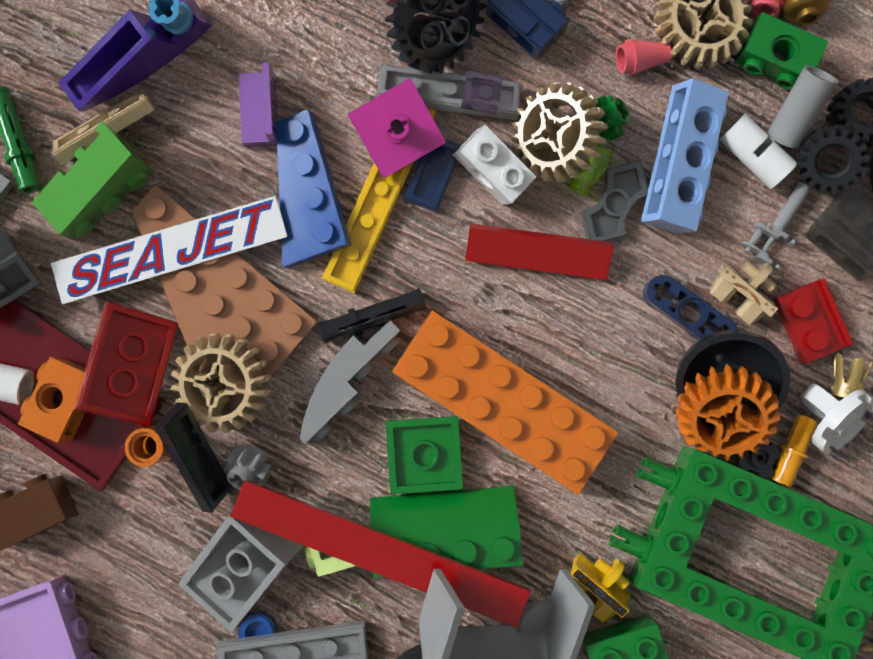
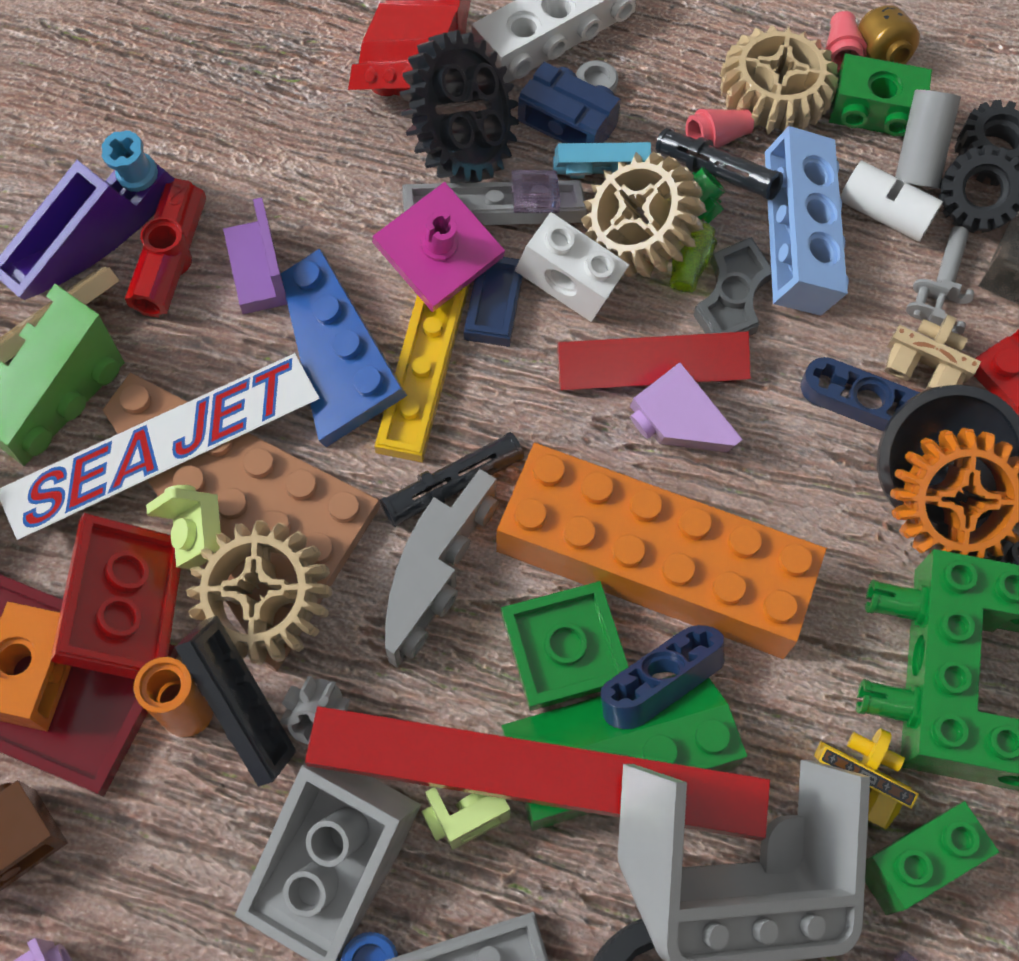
camera: 15 degrees left, 20 degrees down
(184, 321) = (194, 522): none -> yellowish green bracket
(201, 62) = (159, 266): none -> red piece
(490, 479) = (637, 697): none -> dark blue beam
(523, 72) = (592, 158): none -> medium azure plate
(545, 302) = (682, 414): none -> lavender slope
(620, 83) = (760, 179): none -> black pin

